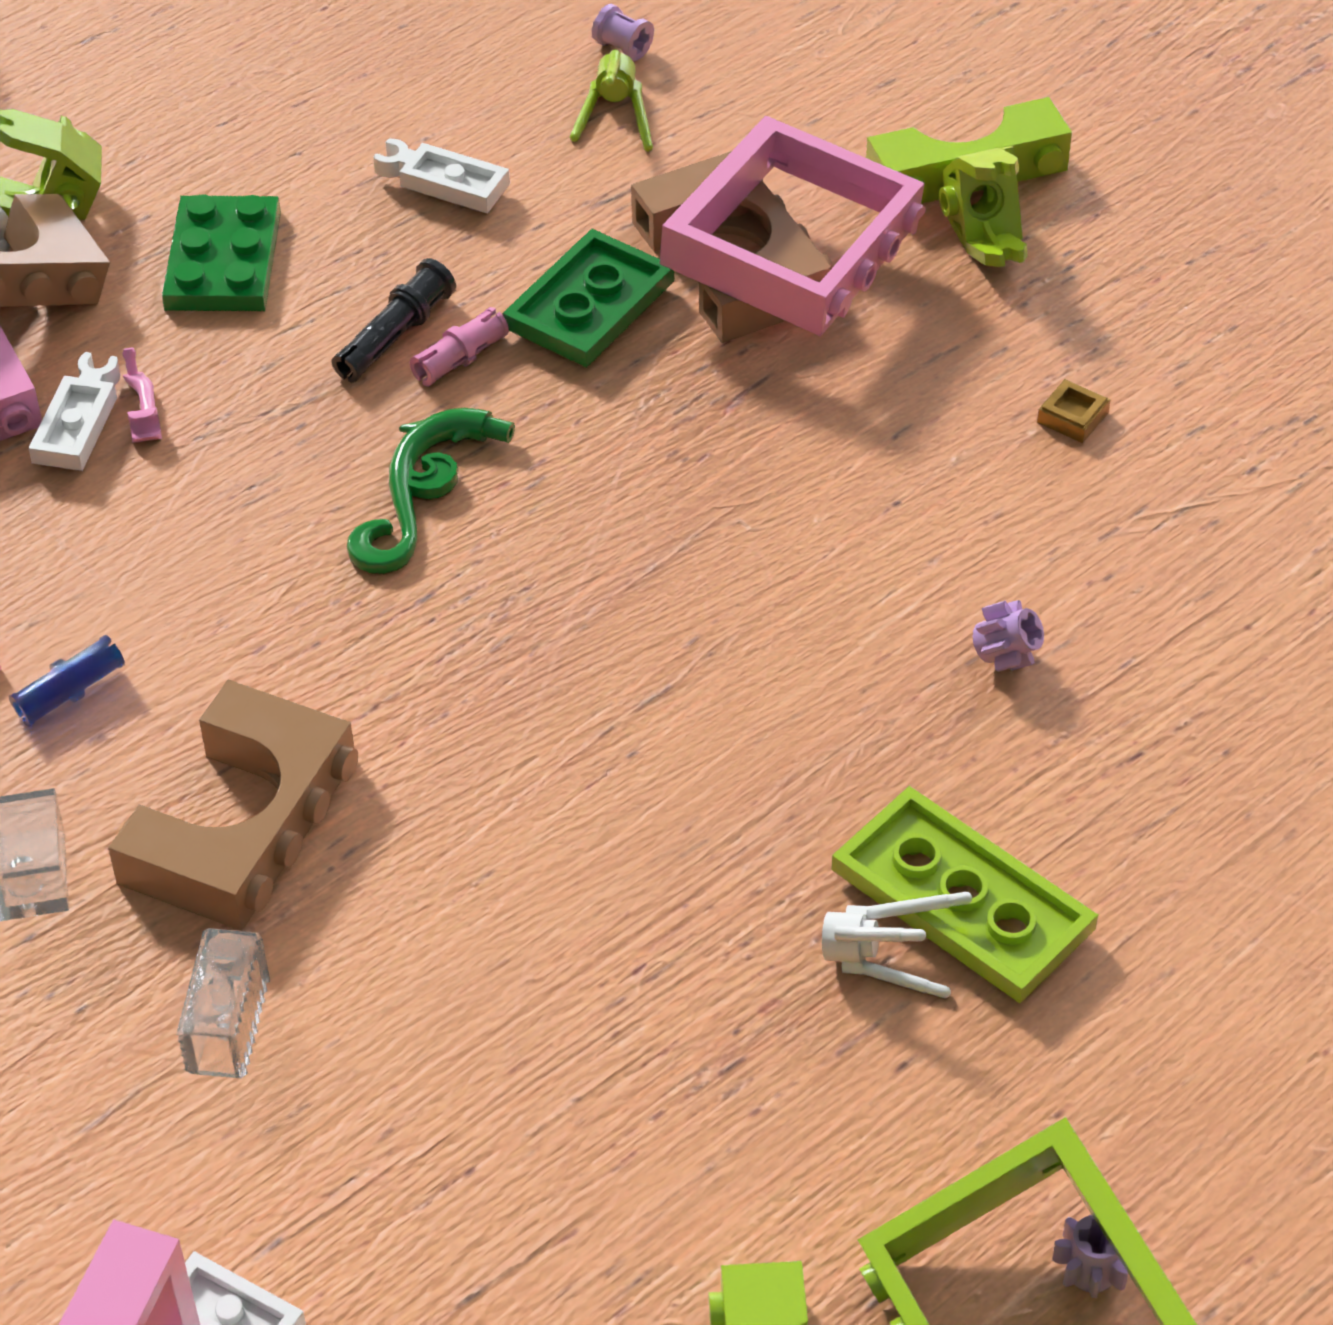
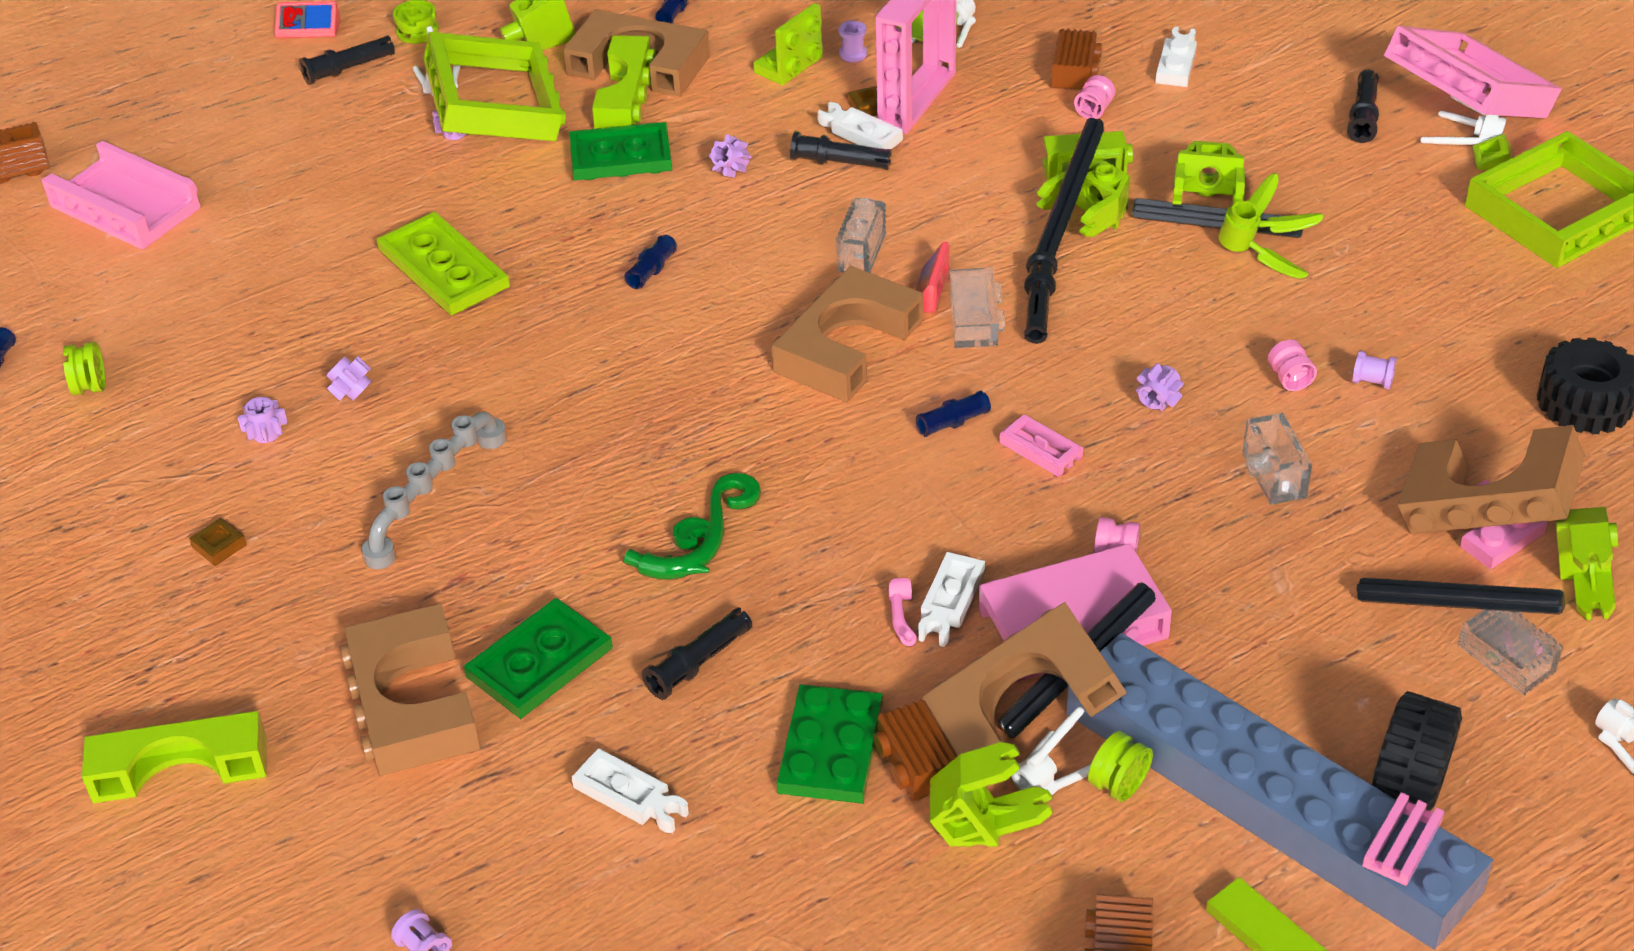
camera: 170 degrees left, 5 degrees down
(99, 937) = (933, 277): none -> coral slope
(122, 232) = (914, 747): none -> dark orange brick
(313, 1251) = (825, 150): none -> black pin
(459, 346) = (650, 629): bright pink pin -> none
(497, 1188) = (730, 156): none -> lavender gear
(596, 930) = (650, 261): none -> clear blue pin
(615, 82) = (447, 878): lime plant -> none
(724, 1205) = (620, 151): none -> green plate
(812, 305) = (392, 679): bright pink window -> none
(839, 416) = (467, 430): none -> light grey bar
(856, 935) = (509, 241): white plant -> none
(992, 225) = (191, 677): lime piece -> none
(1105, 564) = (262, 420): none -> lavender gear

